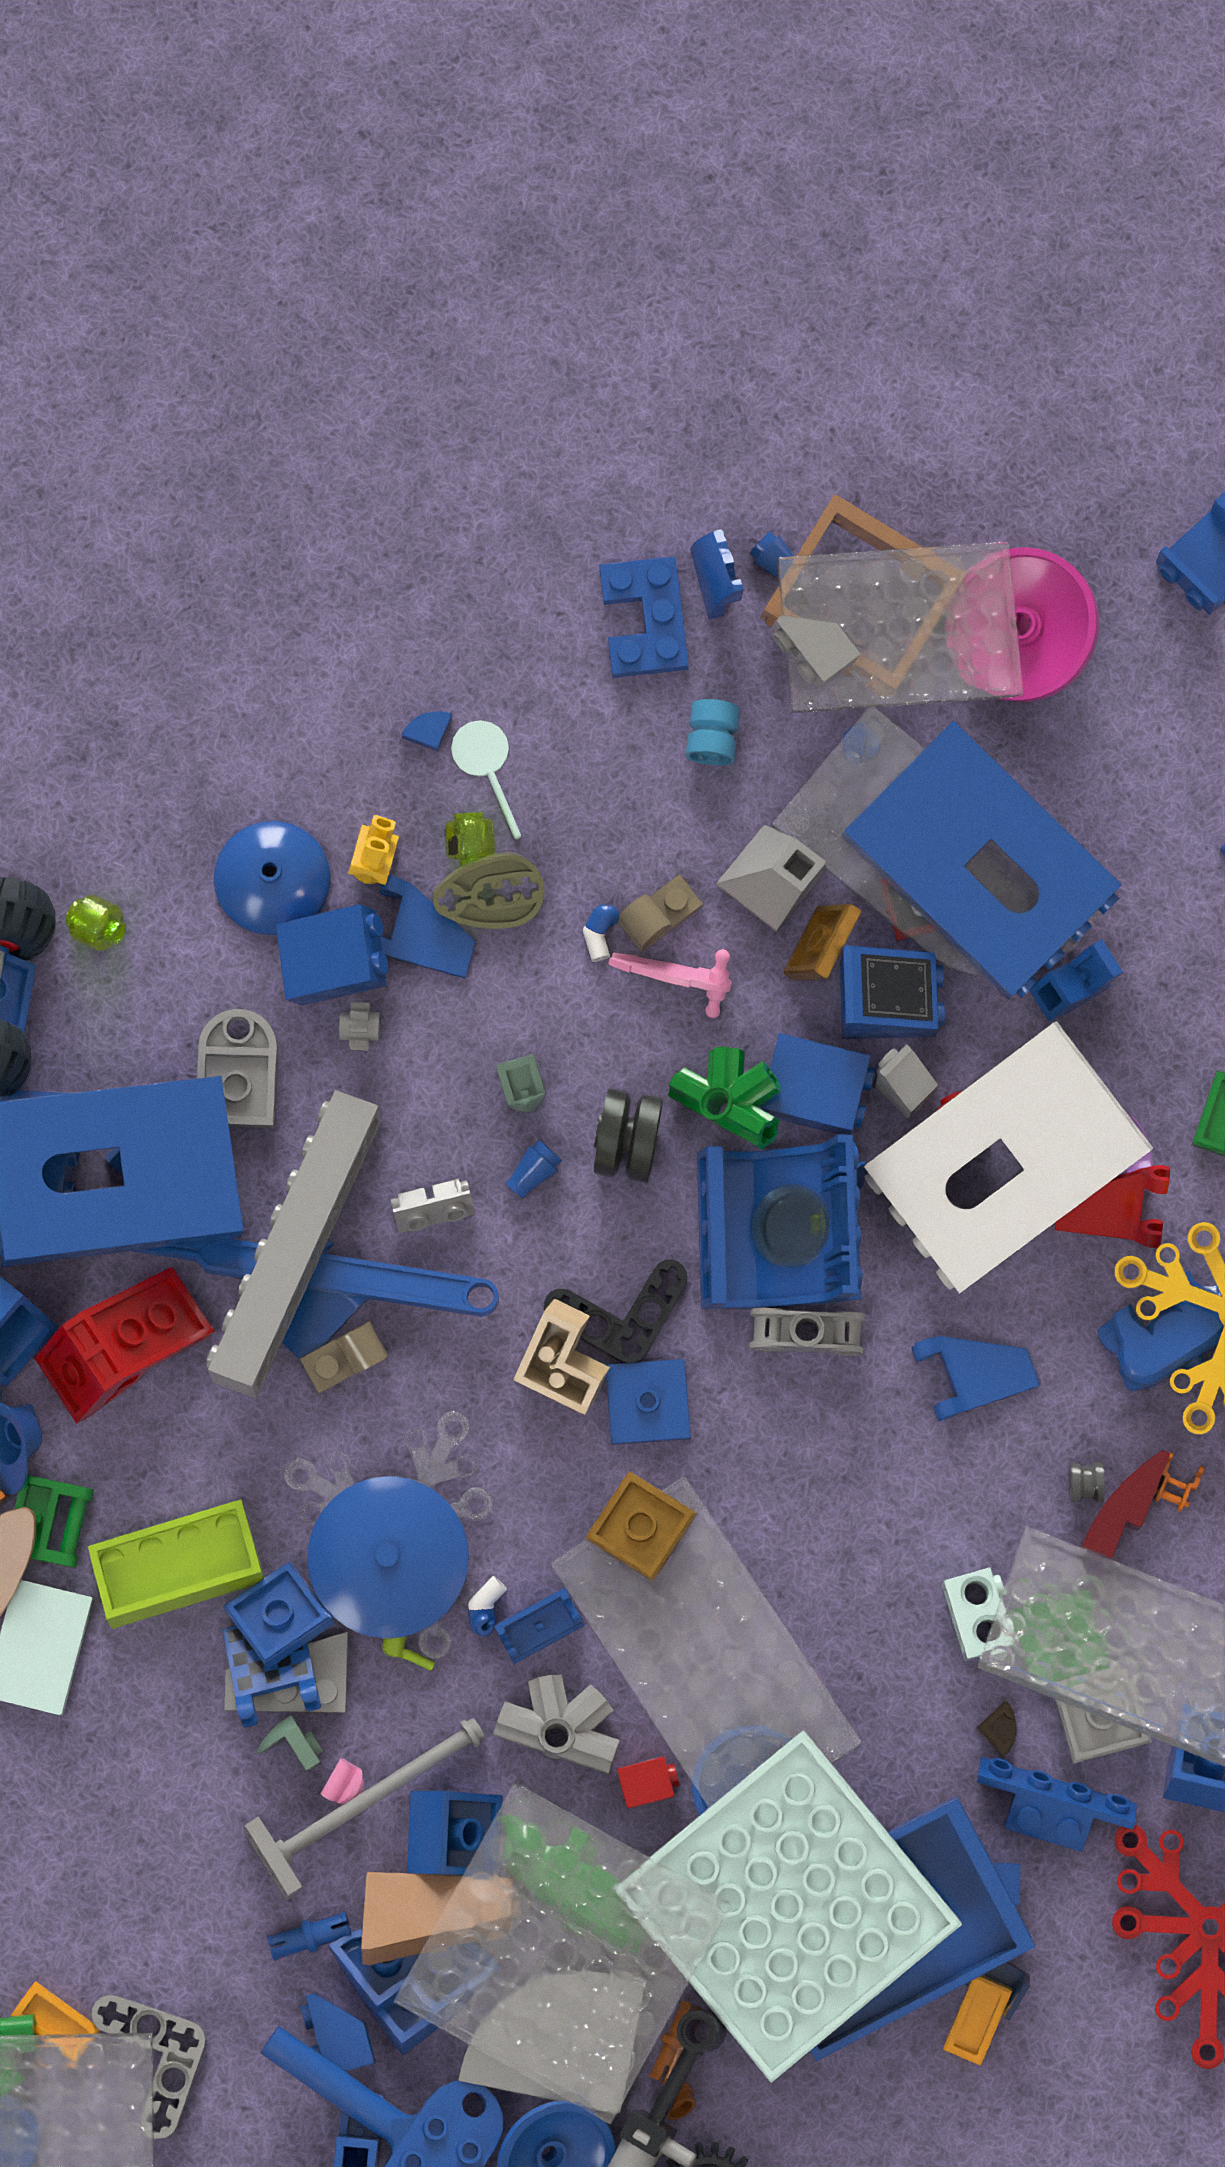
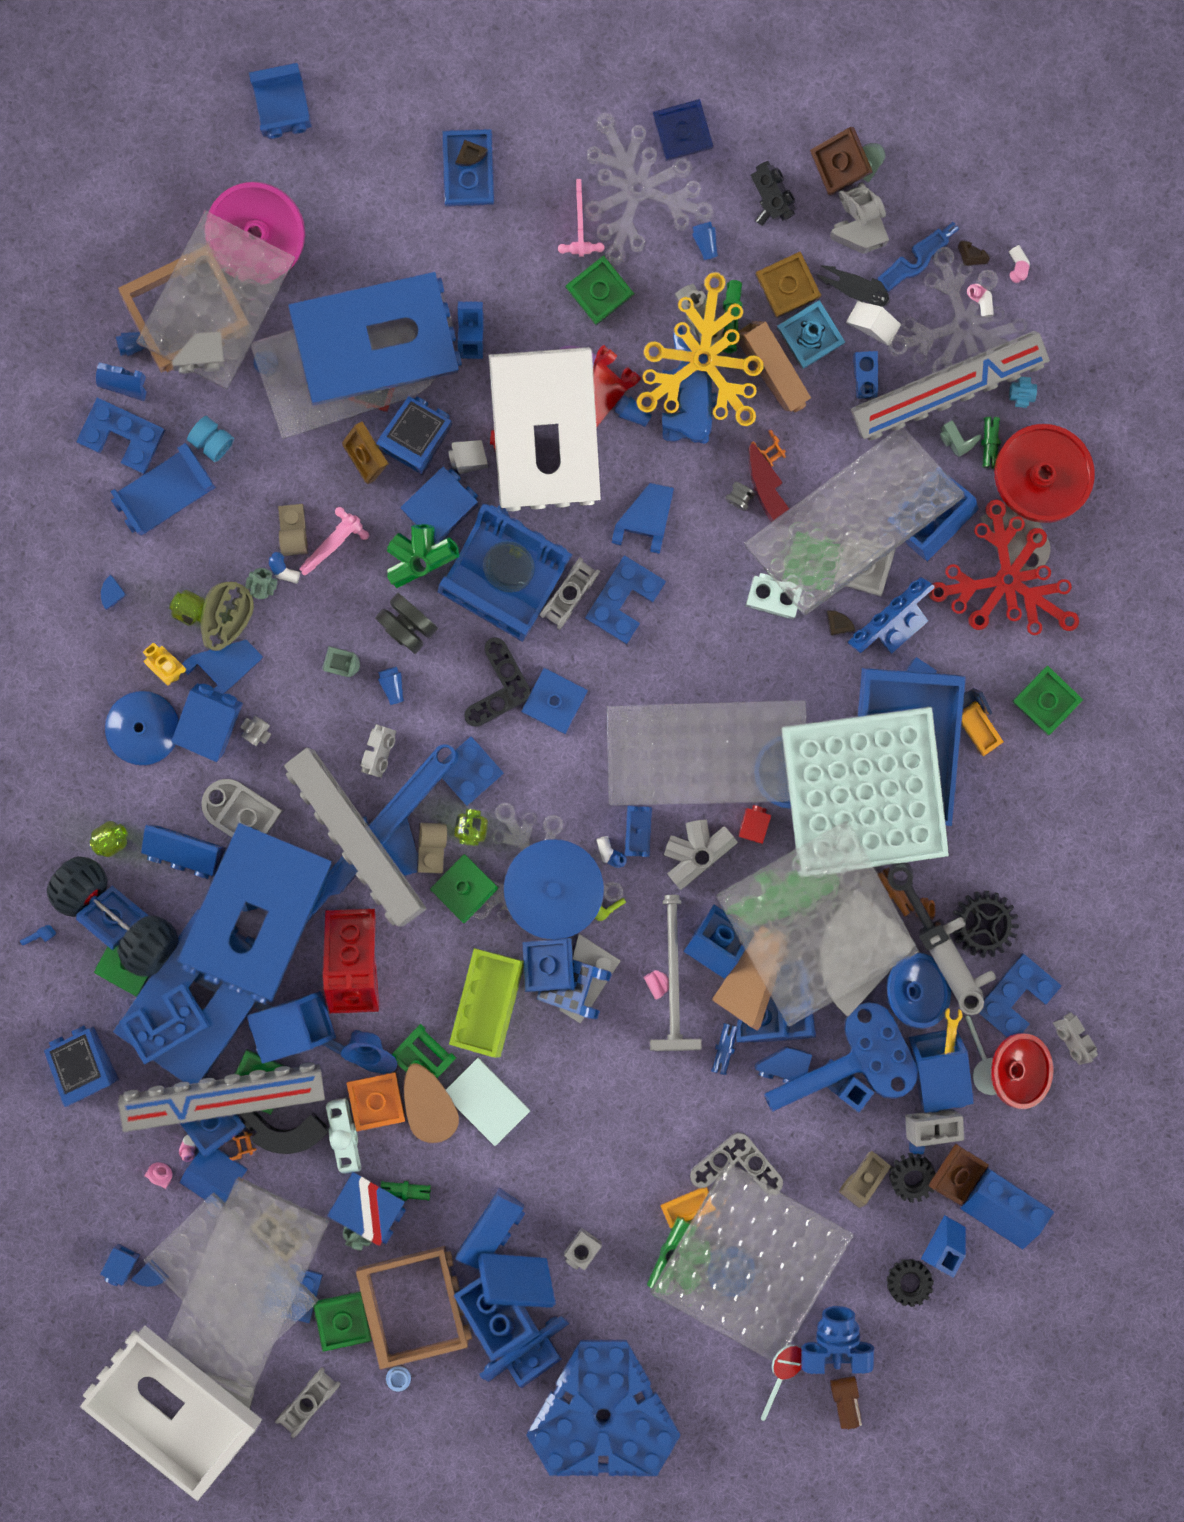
camera: 60 degrees left, 10 degrees up
(137, 1024) = (181, 851): none -> blue slope
(304, 1746) = (625, 992): sand green plate -> none
(315, 1435) = (464, 888): none -> green plate
(404, 1393) = (471, 827): none -> clear neon green head
(480, 751) = (141, 572): light aqua piece -> none
(481, 1348) = (471, 772): none -> blue plate
(554, 1365) = (507, 738): tan brick -> none
(562, 914) = (261, 583): none -> sand green gear
(604, 714) = (163, 491): none -> blue panel
(641, 1526) = (620, 745): pearl gold plate -> none
(772, 876) = (310, 456): light grey slope -> none
(818, 1394) = (606, 609): none -> blue plate
(1077, 2092) = (1047, 700): none -> green plate
(1103, 1258) = (628, 410): none -> blue cone

